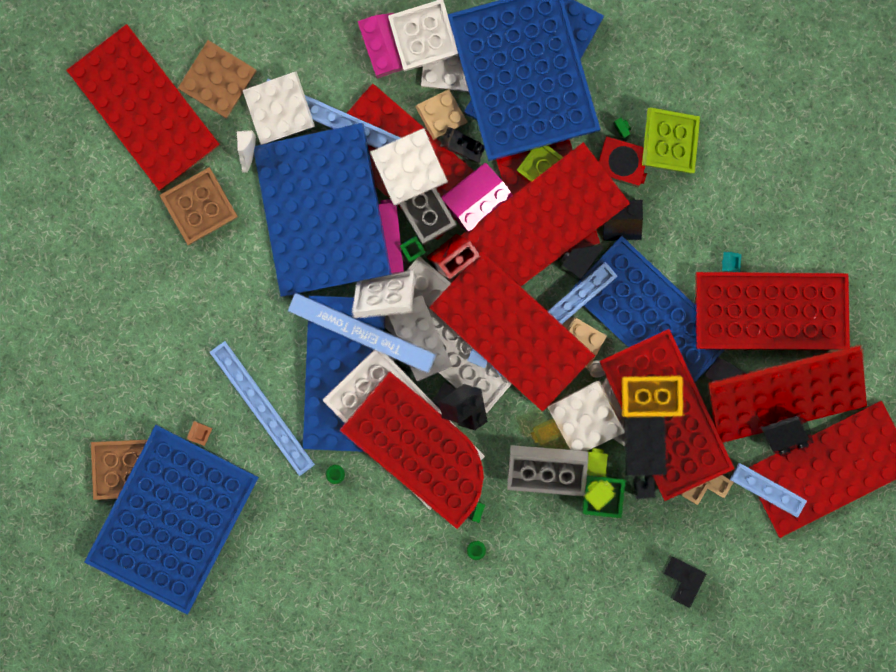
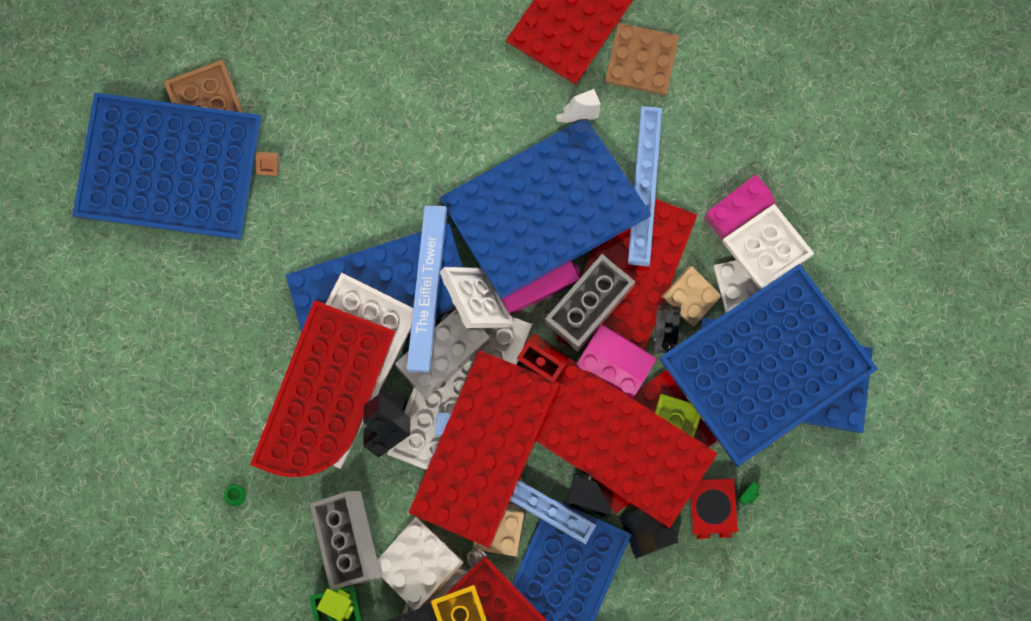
camera: 70 degrees right, 10 degrees down
(198, 206) = (504, 84): medium nougat plate -> none
(262, 408) = (314, 219): light blue tile -> none
(278, 108) = (635, 128): white plate -> none
(335, 474) = (269, 317): green plate -> none
(408, 167) = (621, 275): white plate -> none
(413, 248) = (536, 313): green brick -> none
(477, 512) = (276, 481): green plate -> none
(545, 432) = (387, 525): clear yellow brick -> none
(597, 463) = (372, 593): lime brick -> none
(671, 140) = (755, 551): lime plate -> none

